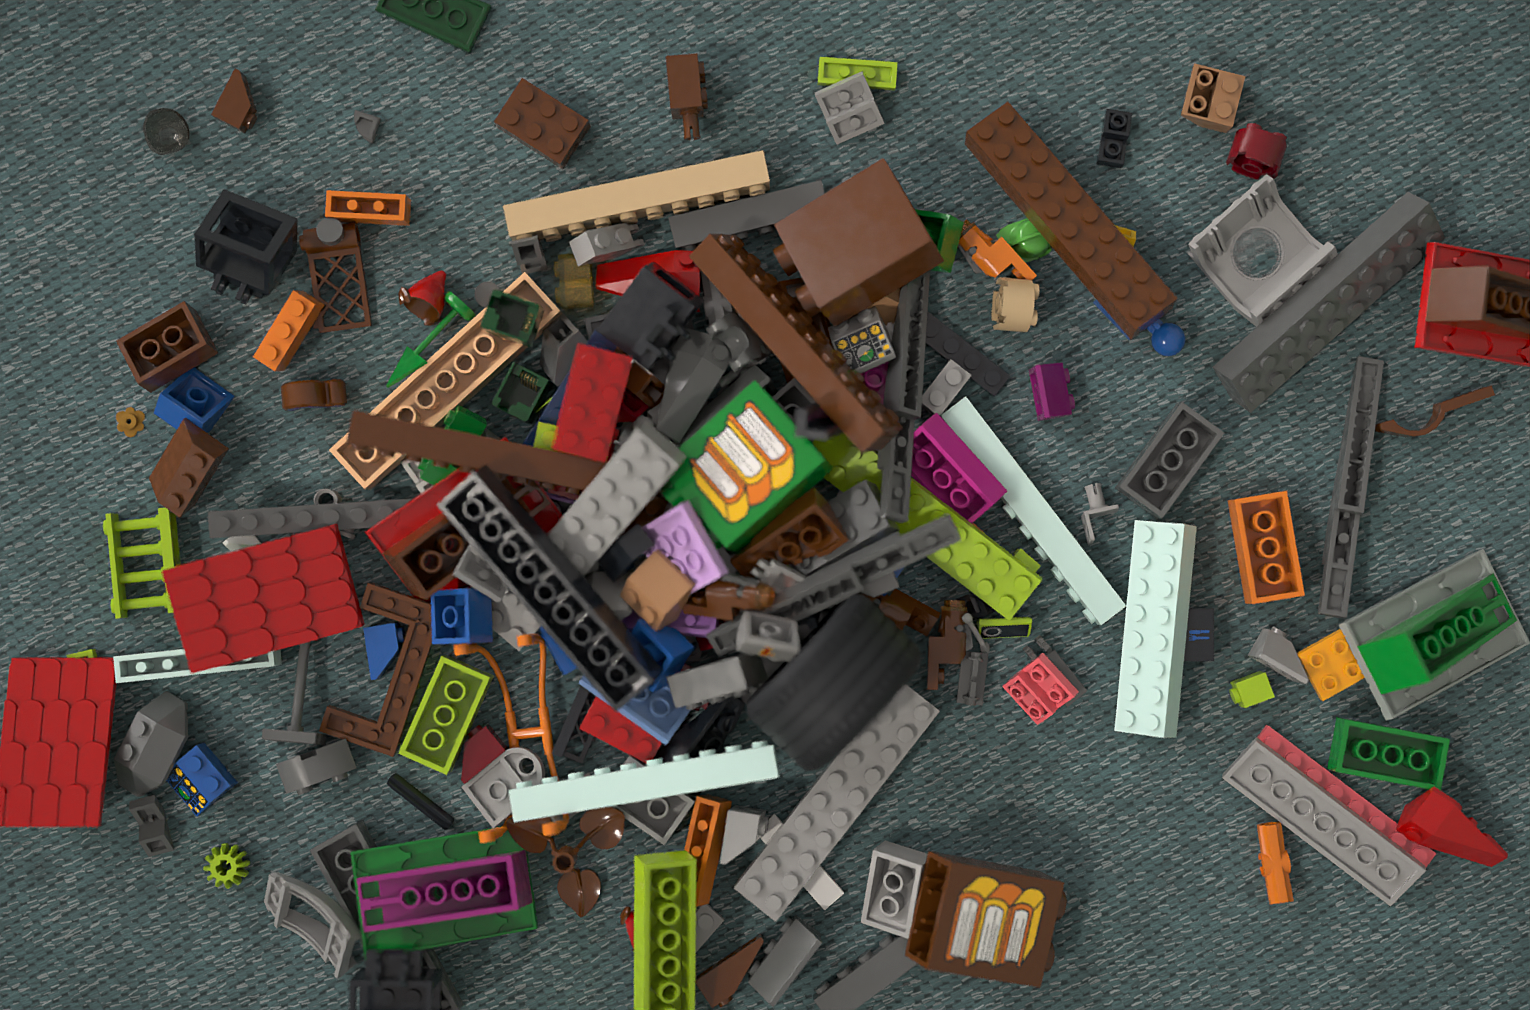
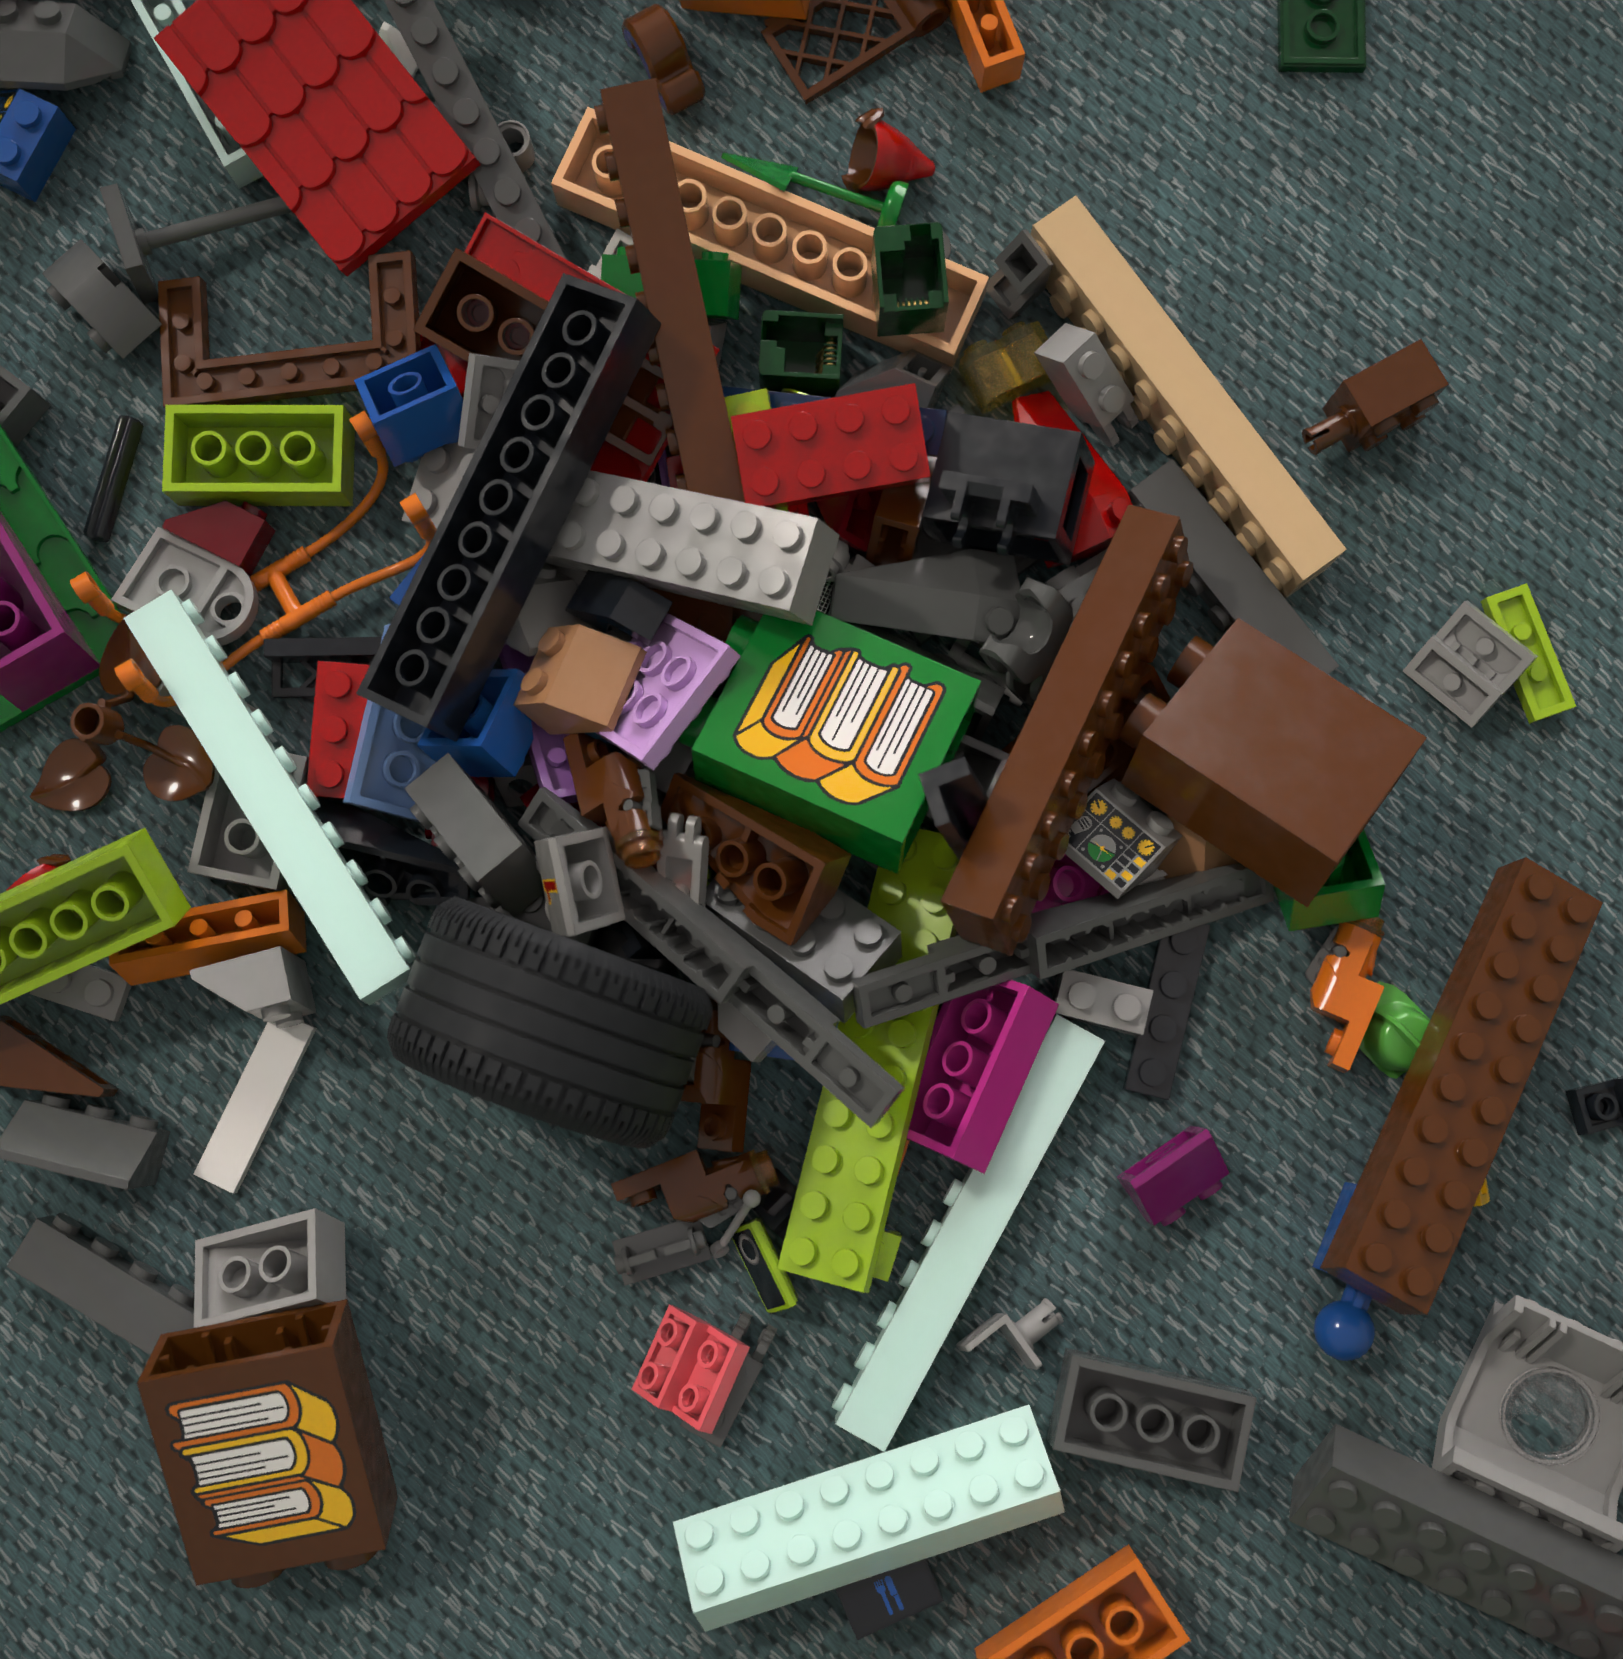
camera: 65 degrees right, 5 degrees down
(382, 647) = (322, 318): blue slope -> none
(542, 123) = (1225, 214): reddish brown brick -> none
(833, 804) = (367, 1114): light grey brick -> none
(1014, 304) = (1286, 1056): tan brick -> none

